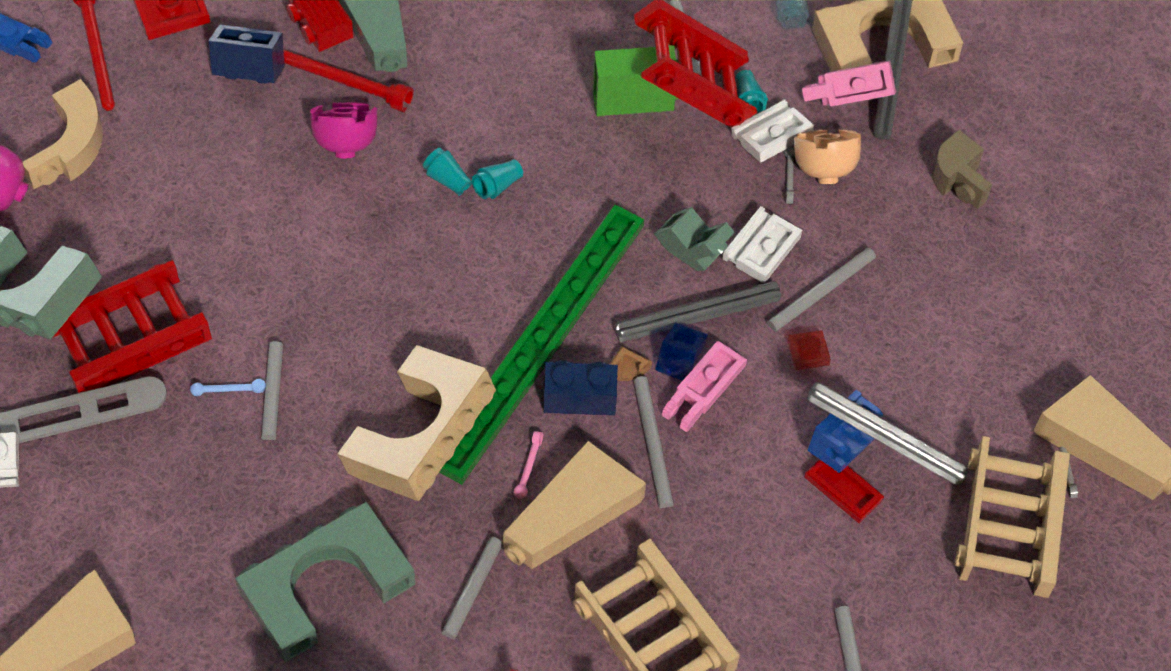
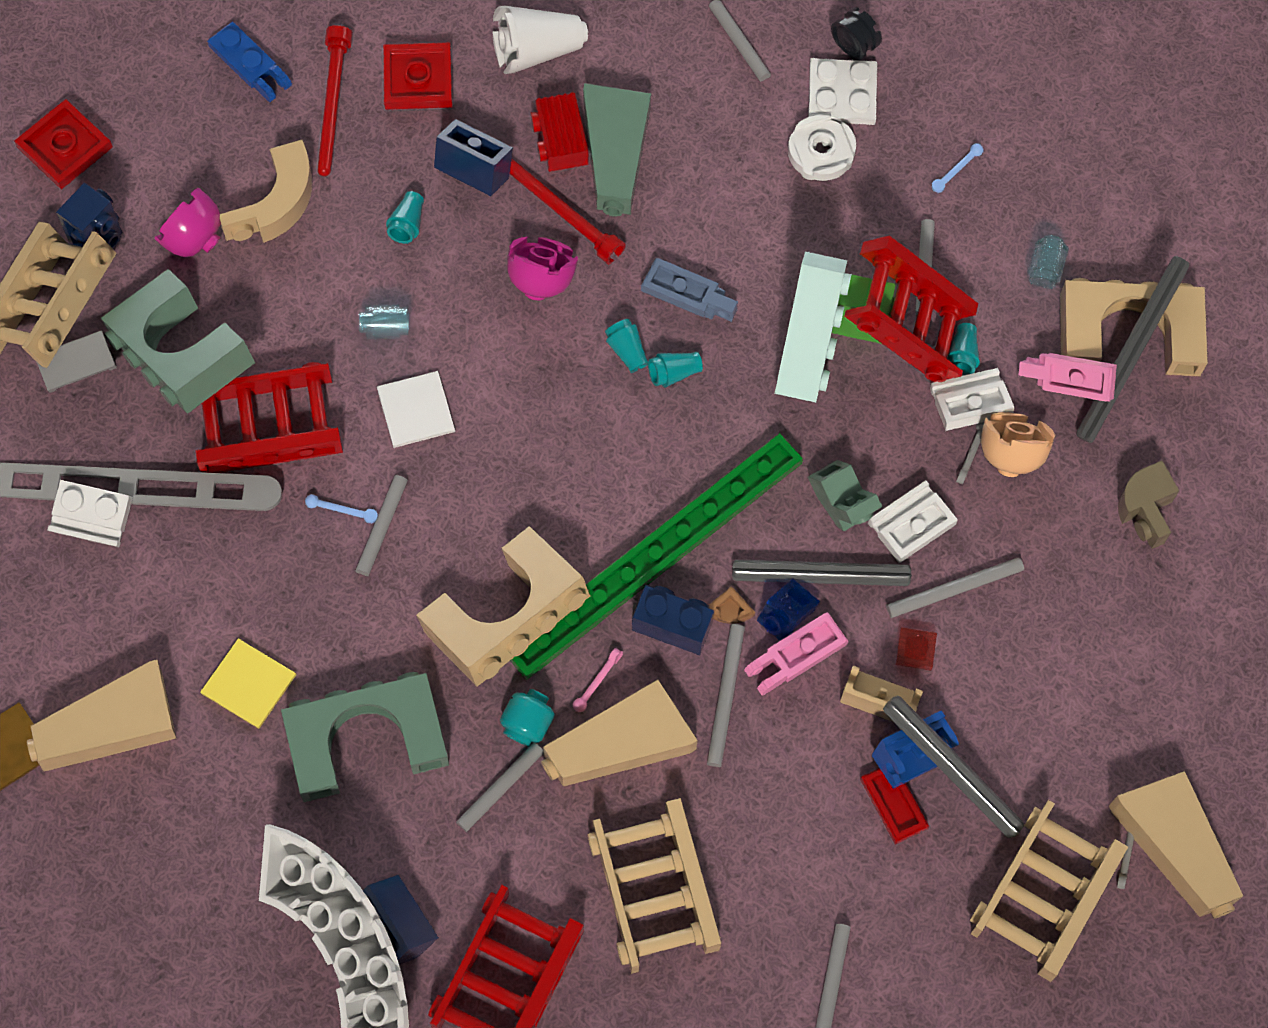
camera: 20 degrees right, 10 degrees up
(191, 570) = (248, 683): none -> light yellow piece
(201, 124) = (405, 220): none -> teal cone
(212, 213) = (384, 321): none -> clear light blue brick
(268, 281) = (415, 409): none -> white piece
(476, 515) = (527, 717): none -> teal head
(485, 112) = (688, 291): none -> sand blue hinge
(613, 101) = (811, 325): none -> light aqua brick
(788, 401) = (872, 693): none -> tan hinge

